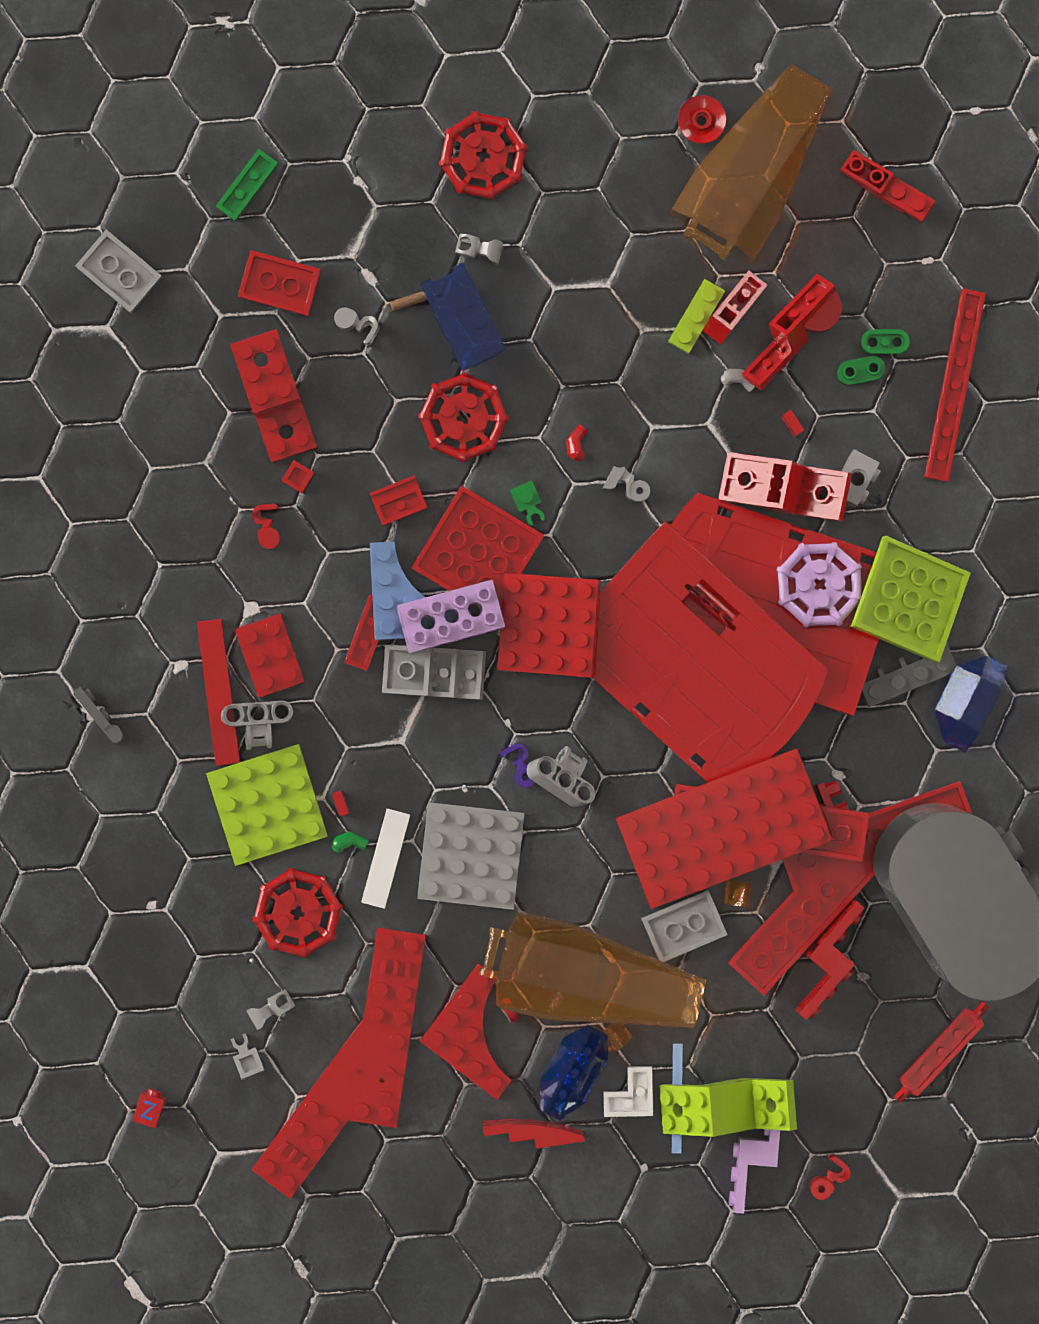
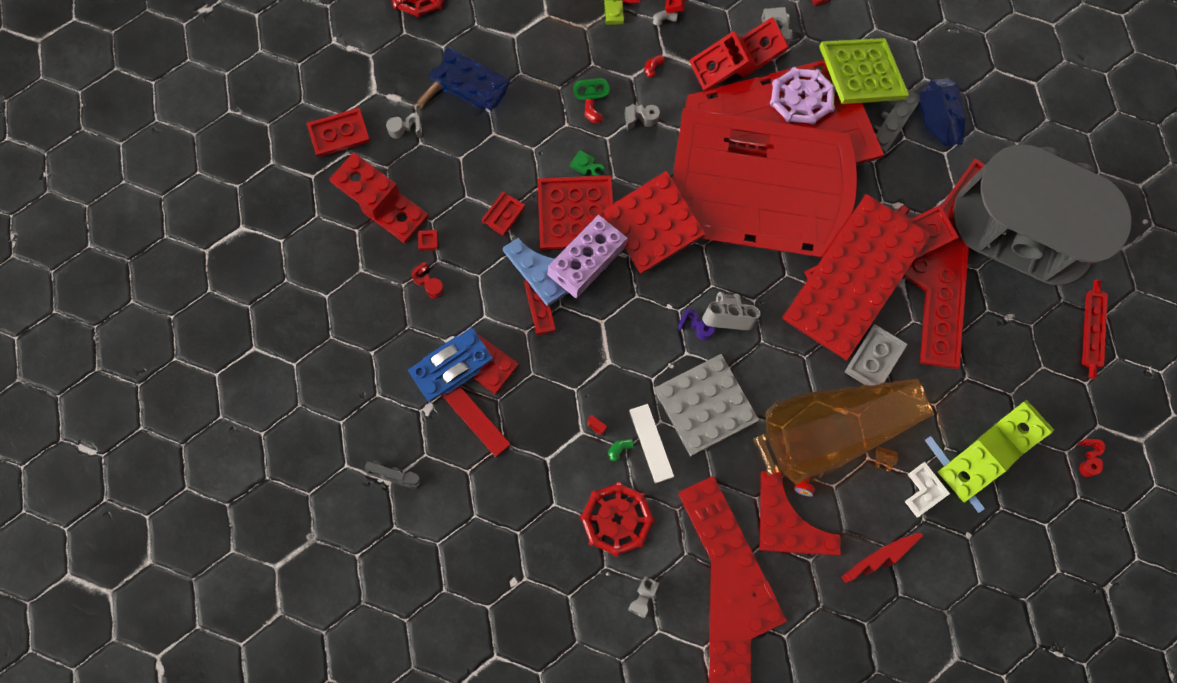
camera: 35 degrees left, 15 degrees down
(118, 271) = (227, 187): light grey plate -> none
(231, 638) = (450, 365): none -> blue piece
(247, 185) = (279, 88): green plate -> none
(247, 1061) = (652, 644): light grey plate -> none
(257, 728) = (507, 414): light grey piece -> none
(267, 804) = (547, 460): lime plate -> none
(434, 672) = (599, 303): light grey slope -> none
(469, 404) = (506, 131): red plate -> none
(470, 247) = (446, 39): light grey leg -> none
(573, 1071) = (876, 498): clear blue wedge -> none
(593, 415) = (591, 88): none -> green plate
(681, 429) = (651, 65): none -> red arm
(737, 893) = (893, 314): clear orange plate -> none
(751, 1152) = (1029, 475): lavender bracket -> none
(792, 423) = (715, 20): red tile -> none
(830, 960) = (985, 315): red bracket -> none

